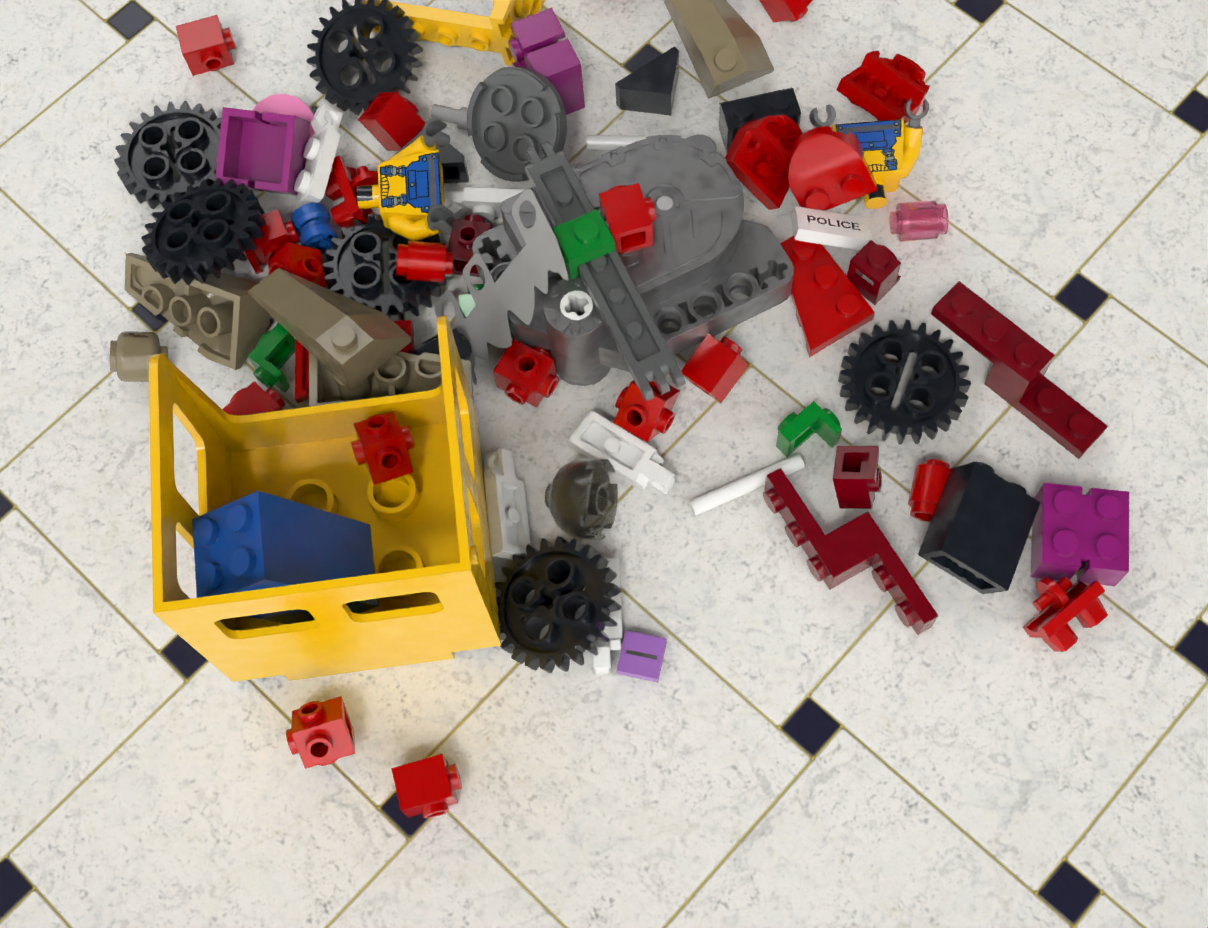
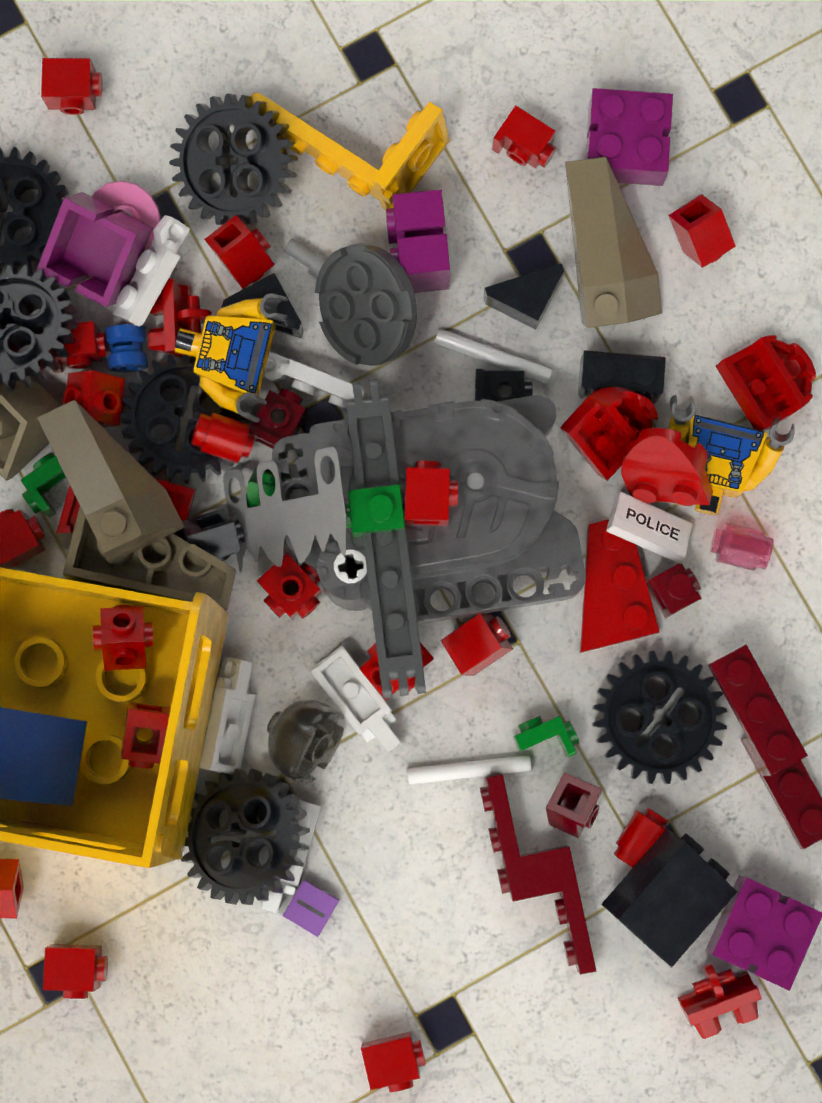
camera: 15 degrees right, 15 degrees up
(434, 512) = (144, 753): none -> red brick
(773, 772) = (393, 1061): none -> red brick

